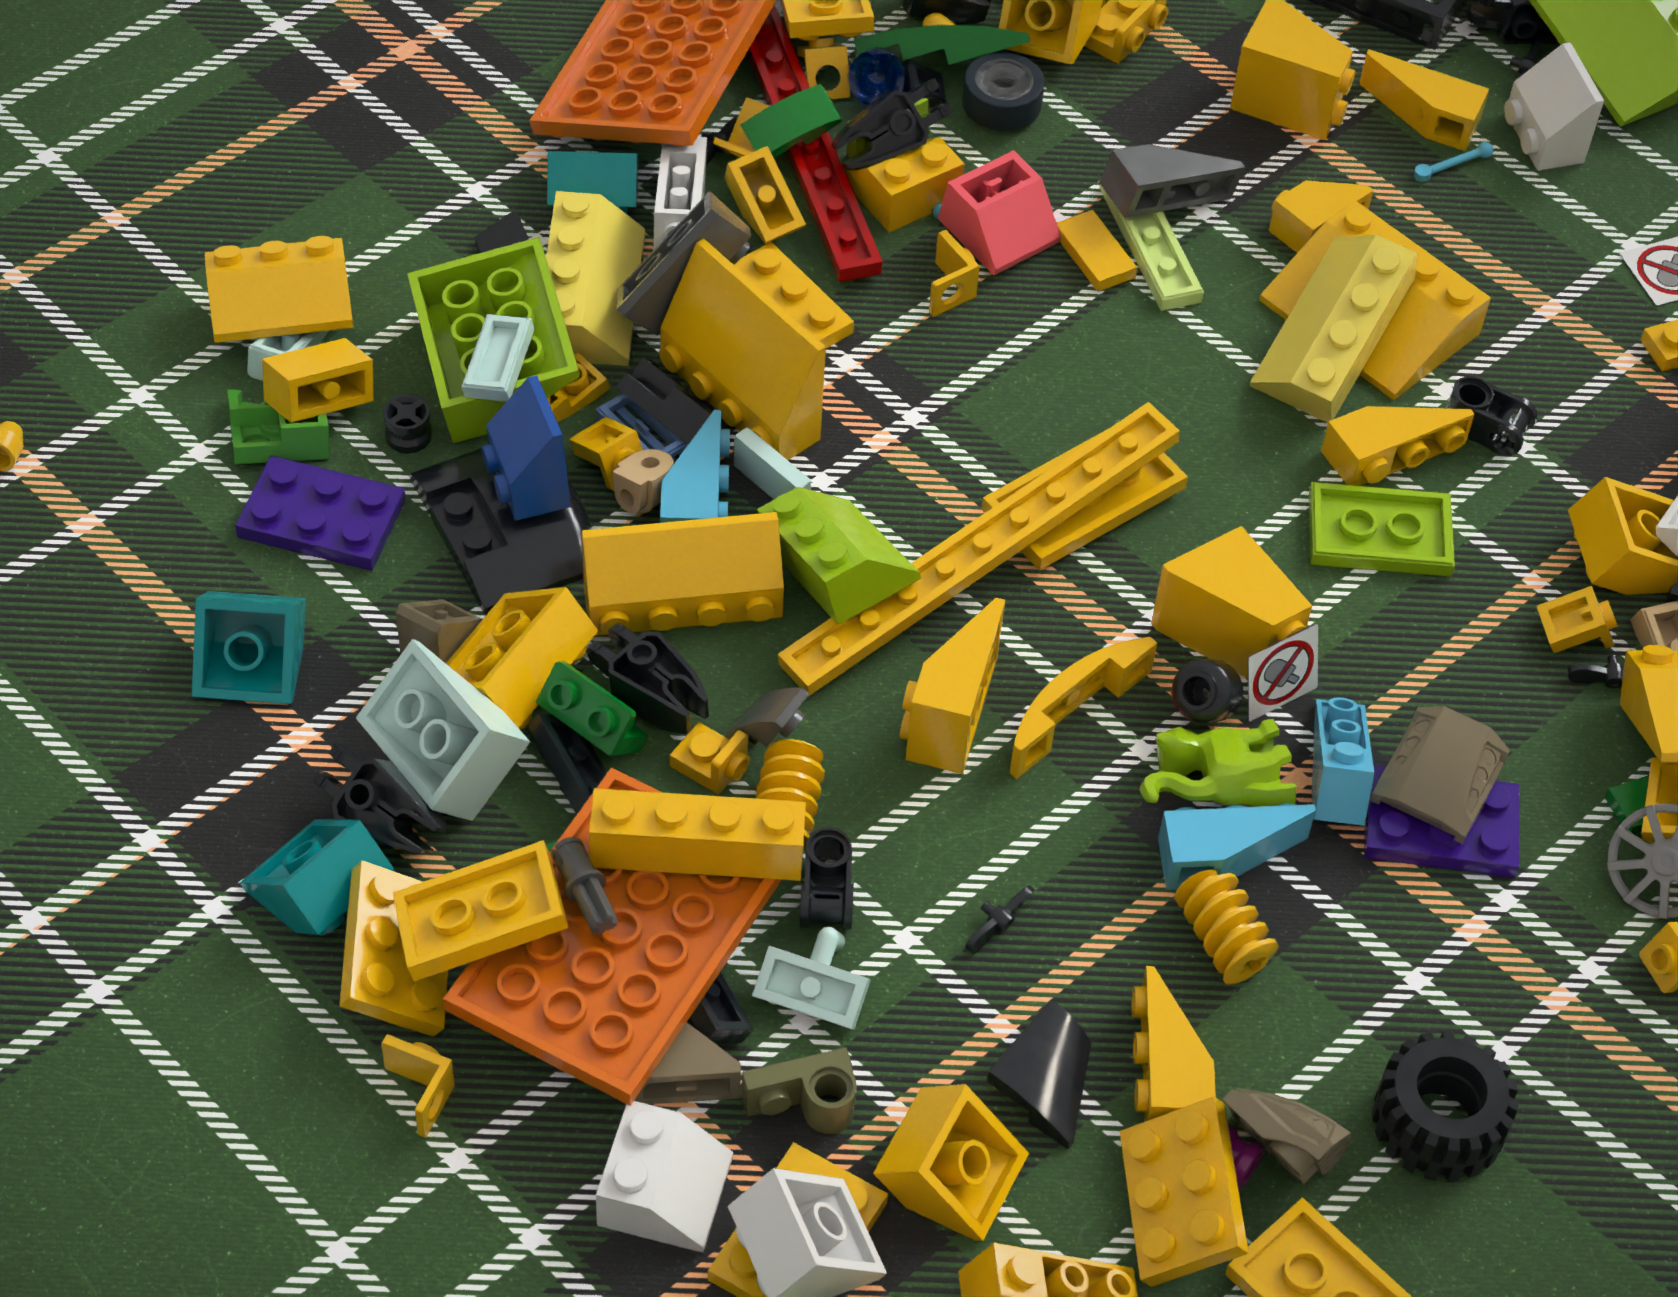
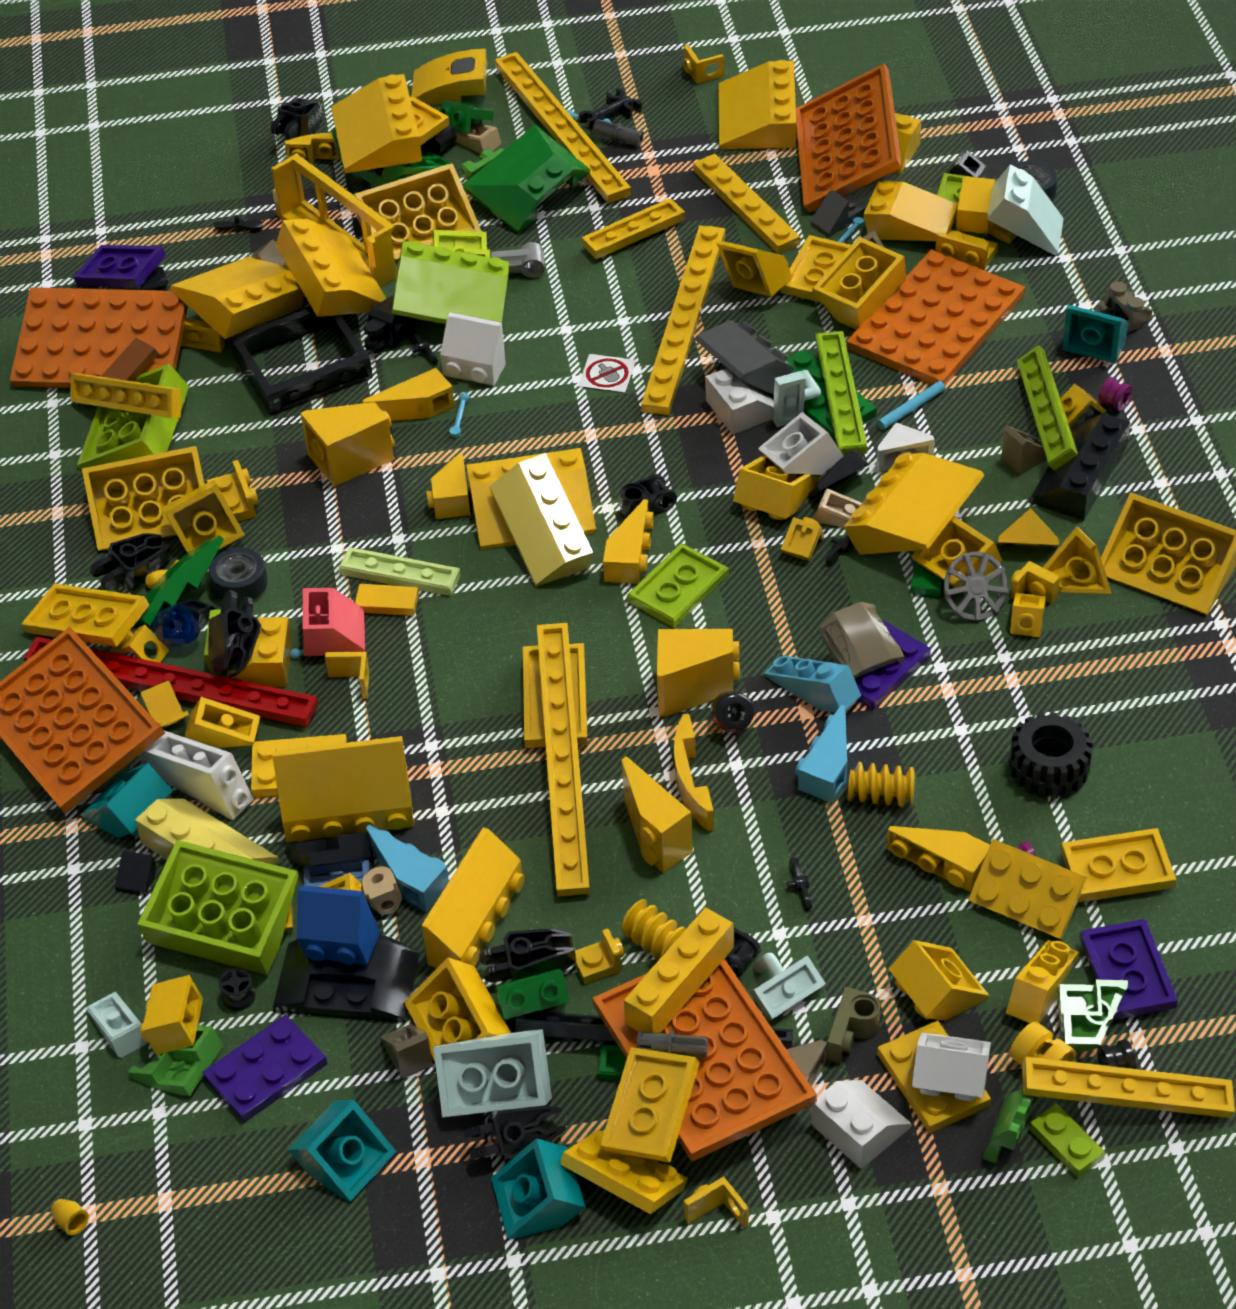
camera: 50 degrees left, 5 degrees down
(278, 289) = (80, 1003): yellow slope -> none
(498, 357) = (252, 906): light aqua tile -> none
(651, 287) = (252, 783): dark grey slope -> none
(766, 466) = (426, 827): light aqua tile -> none
(771, 715) = (603, 911): dark grey slope -> none
(793, 119) = (181, 681): green slope -> none
(837, 553) = (521, 822): lime slope -> none
(1046, 1072) = (910, 912): black slope -> none
(1164, 179) = (372, 538): dark grey slope -> none
(1235, 765) = (784, 728): lime animal -> none
(1282, 672) = (747, 672): sticker -> none
(1290, 1131) = (1029, 822): dark tan slope -> none

